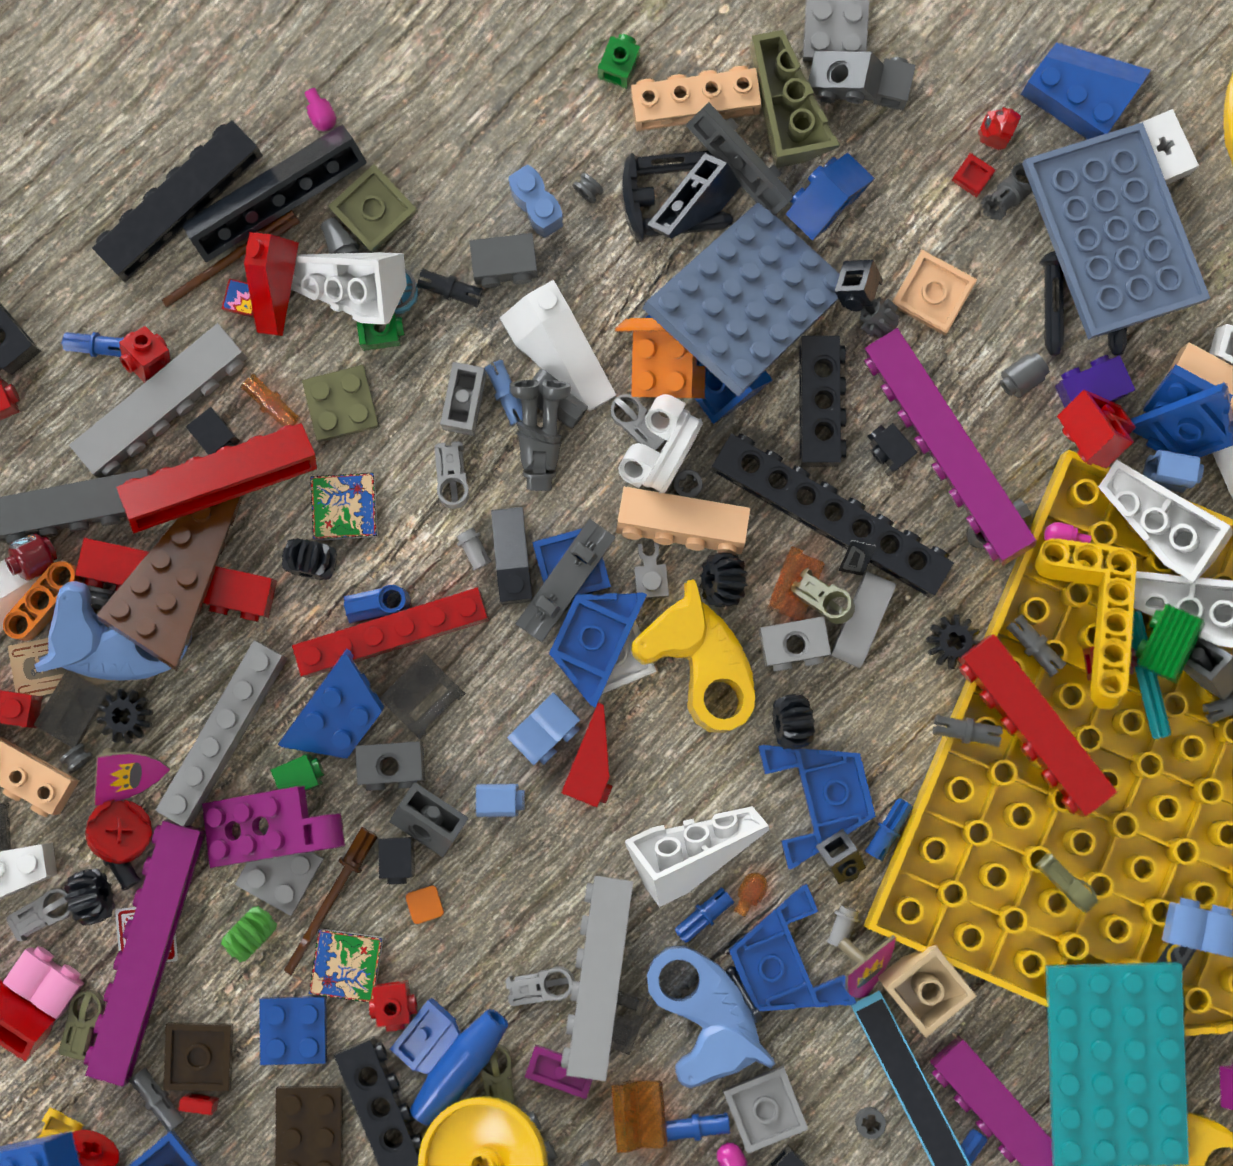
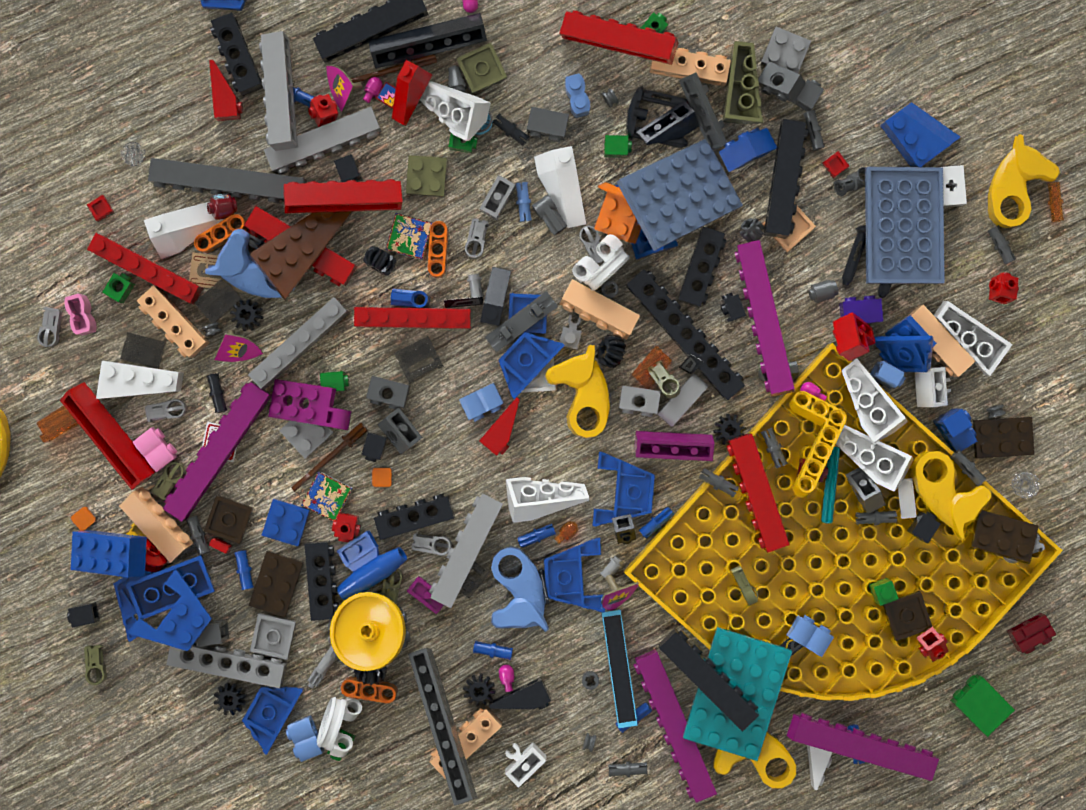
camera: 15 degrees right, 5 degrees up
(64, 347) = (278, 91): none -> light grey brick
(83, 1105) = (156, 524): none -> light nougat brick
(89, 896) = (195, 410): black gear -> none
(118, 831) = (223, 379): red tile -> none
(161, 307) = (341, 86): none -> dark pink shield
(212, 296) = (372, 89): none -> dark pink cylinder
(249, 933) = (278, 461): bright green gear -> none
(249, 1131) = (244, 570): none -> blue pin
(269, 401) = (386, 161): clear orange pin -> none
(336, 713) = (367, 353): blue wing -> none
(388, 498) = (438, 240): none -> orange beam
(461, 987) = (386, 529): none -> black brick
(464, 581) = (463, 302): none -> black sticker
(499, 800) = (443, 433): medium blue brick -> none
(539, 445) = (532, 238): dark grey piece -> none
(571, 89) = (619, 37): none -> red brick
(624, 258) = (617, 146): none -> green brick
(639, 1115) = (463, 633): clear orange panel -> none
(765, 1109) = (534, 653): light grey plate -> none
(793, 721) = (623, 444): black gear -> none
(858, 291) = (743, 209): black brick -> none
(875, 696) = (674, 446): none -> magenta brick
(903, 222) = (785, 178): none -> black brick
(921, 133) = (814, 130): none -> dark grey pin
(927, 988) = (646, 617): tan slope -> none
(998, 127) = (859, 142): red rock -> none
(1065, 1057) = (709, 679): none -> black brick
(1170, 642) = (848, 472): green brick -> none

